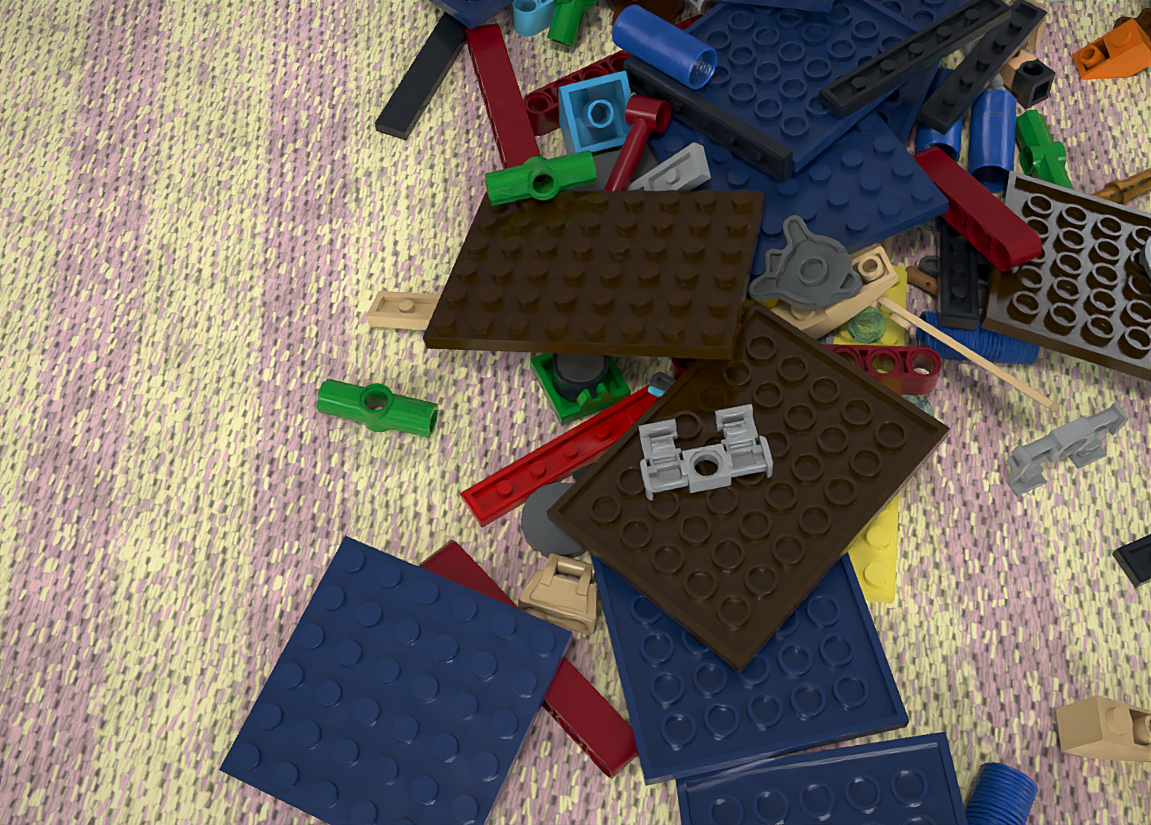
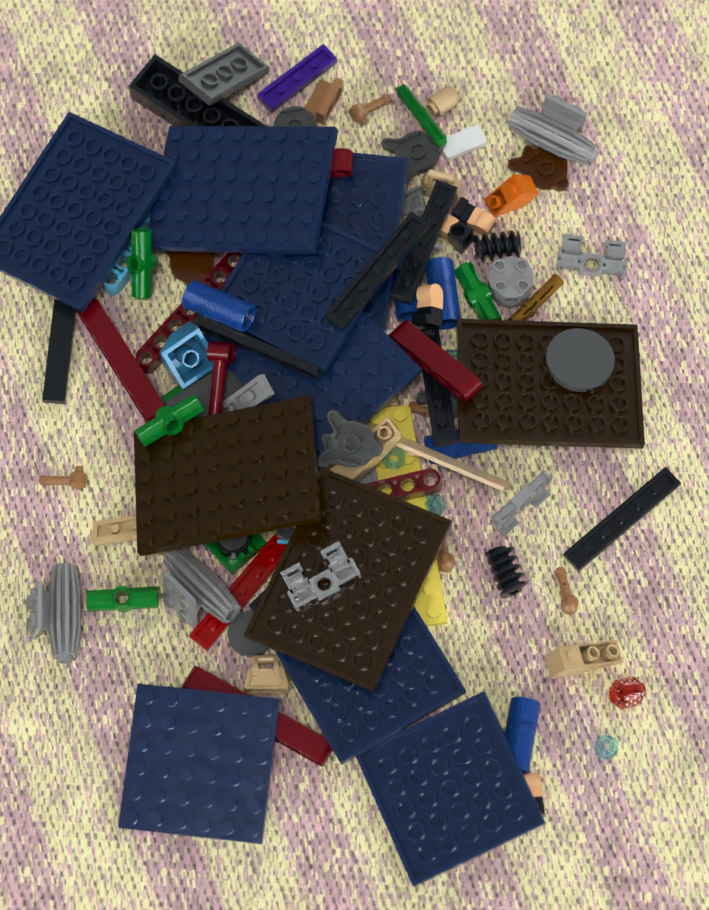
camera: 15 degrees left, 10 degrees up
(269, 395) = (57, 612): none -> light grey plate
(378, 233) = (76, 480): none -> medium nougat piece
(496, 417) = (195, 587): none -> light grey plate
(912, 502) = (445, 560): none -> medium nougat piece
(974, 140) = (429, 306): none -> leg
(1014, 546) = (505, 571): none -> black piece
(1069, 71) = (473, 217): none -> leg
(1085, 103) = (497, 245): none -> black piece
(1099, 150) = (510, 281): none -> light grey brick
(1114, 631) = (569, 602): none -> medium nougat piece

